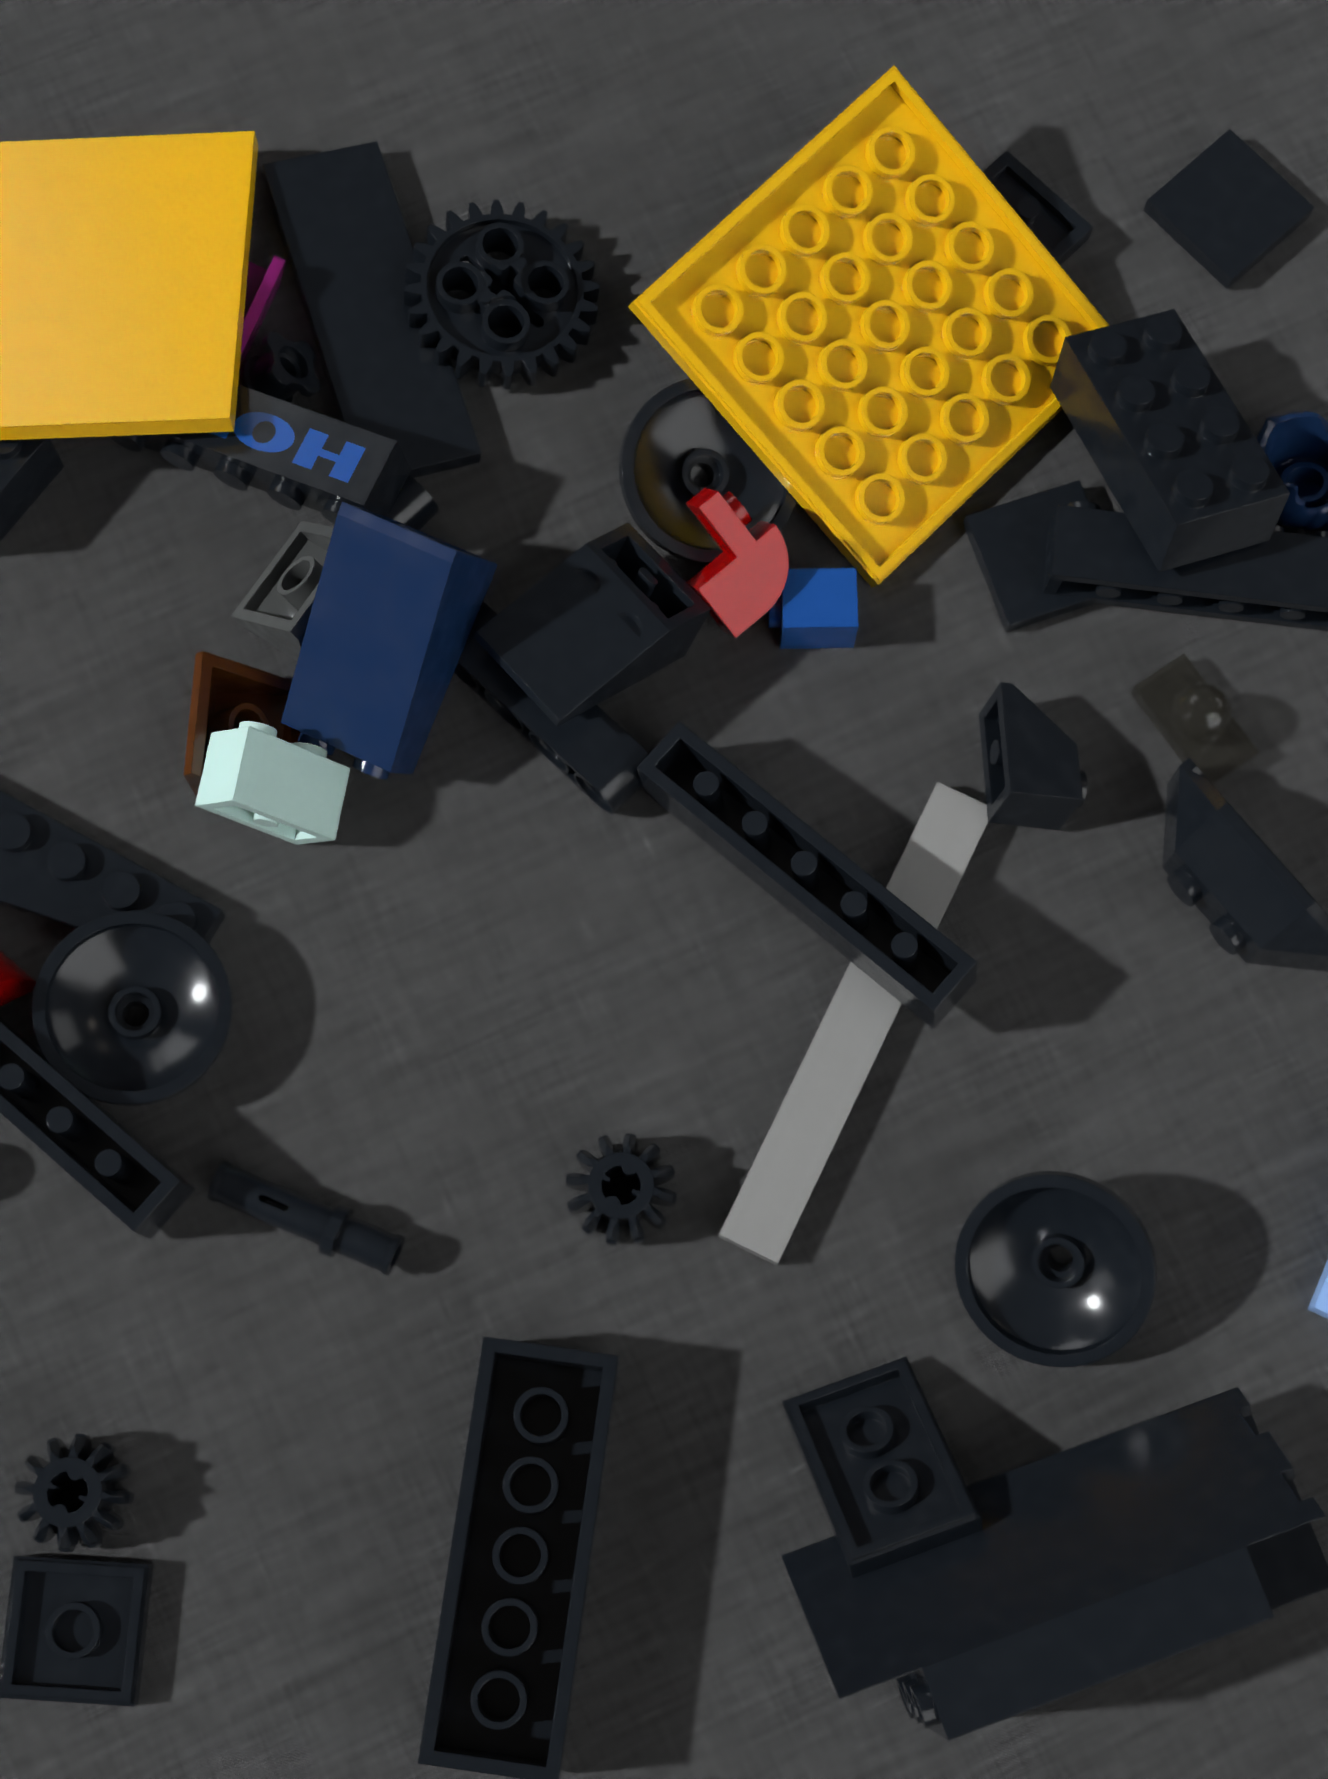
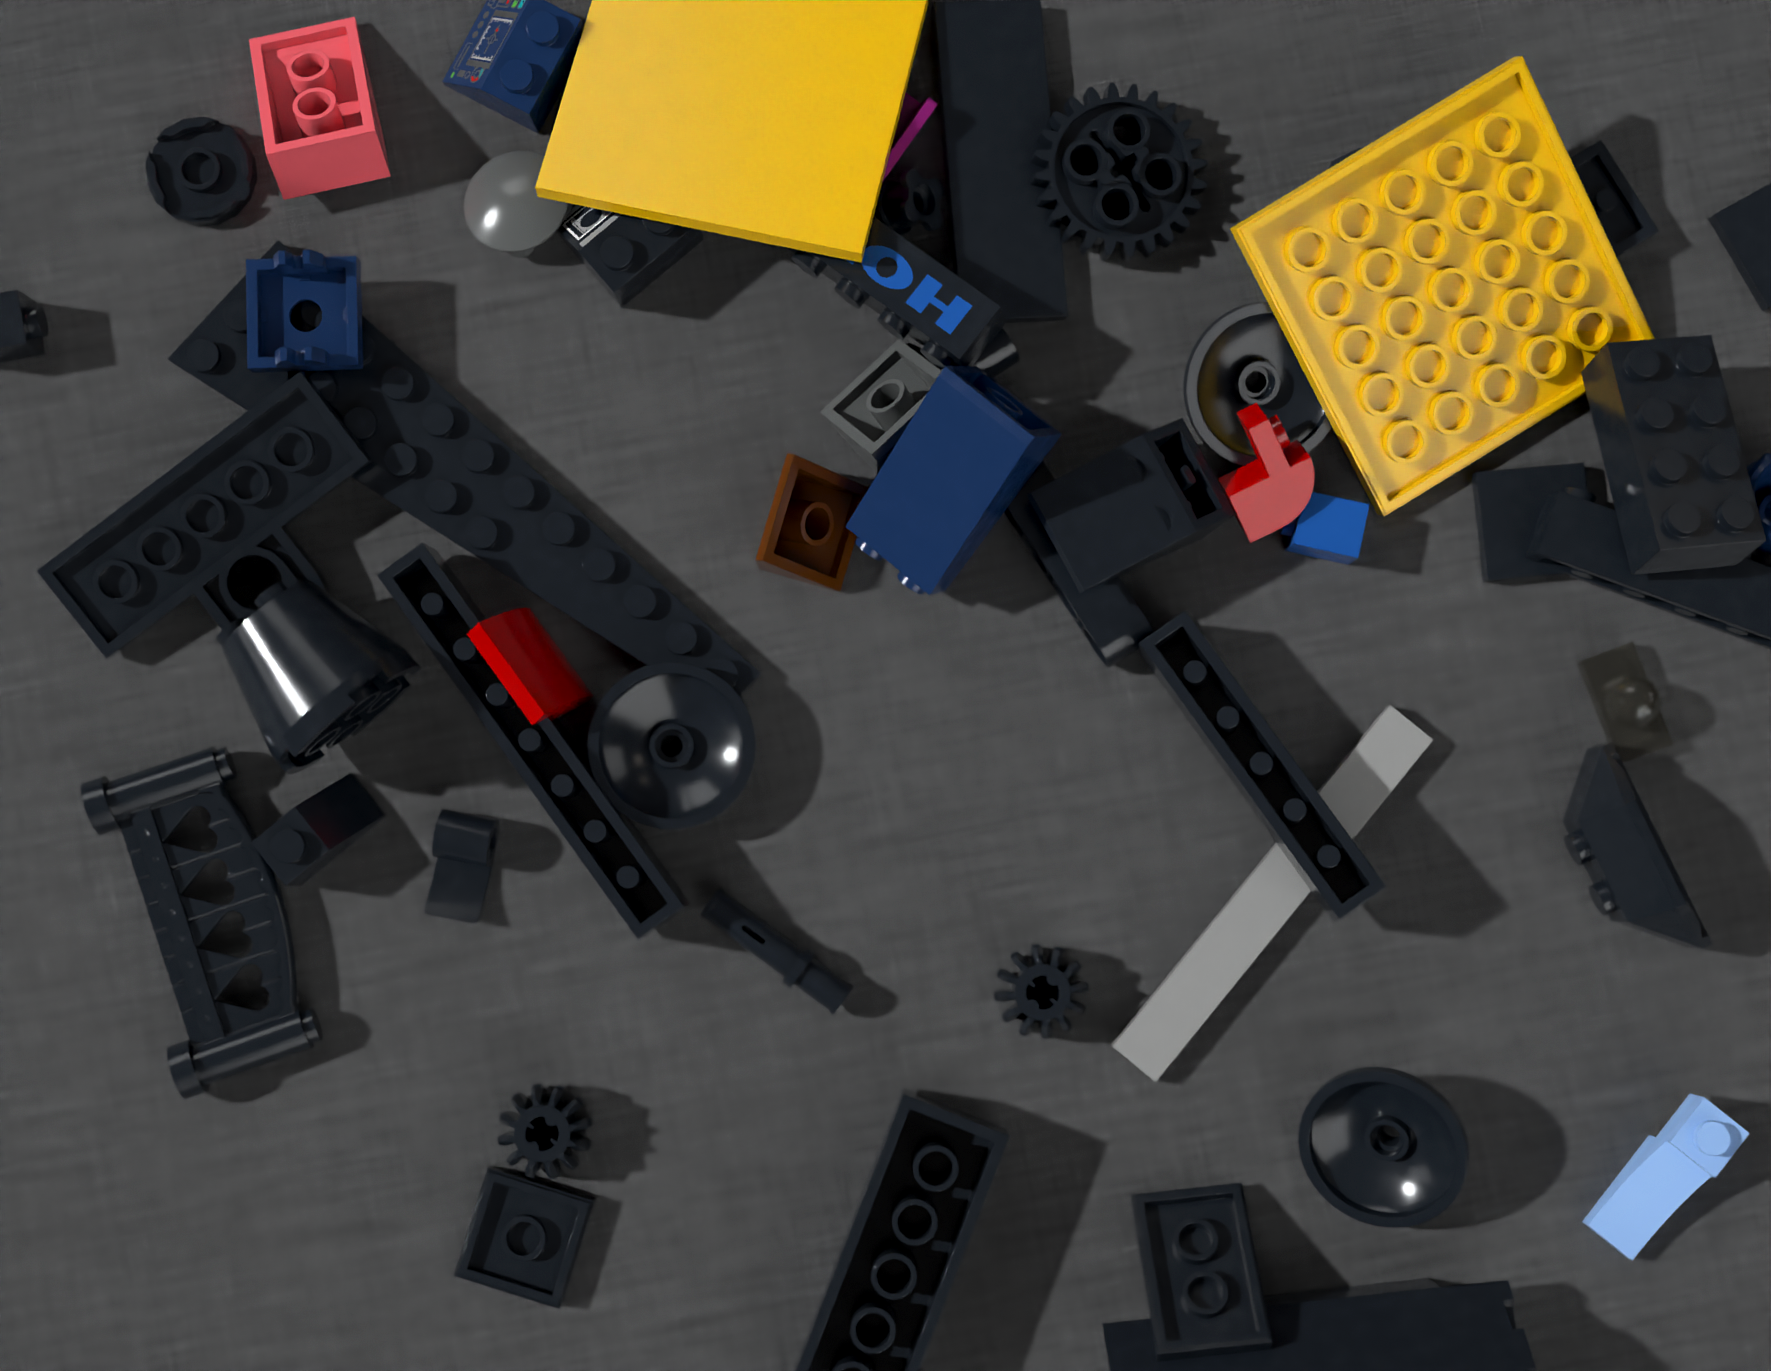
camera: 15 degrees right, 10 degrees up
(273, 784) = (827, 580): light aqua brick -> none
(1027, 763) = (1471, 709): black slope -> none

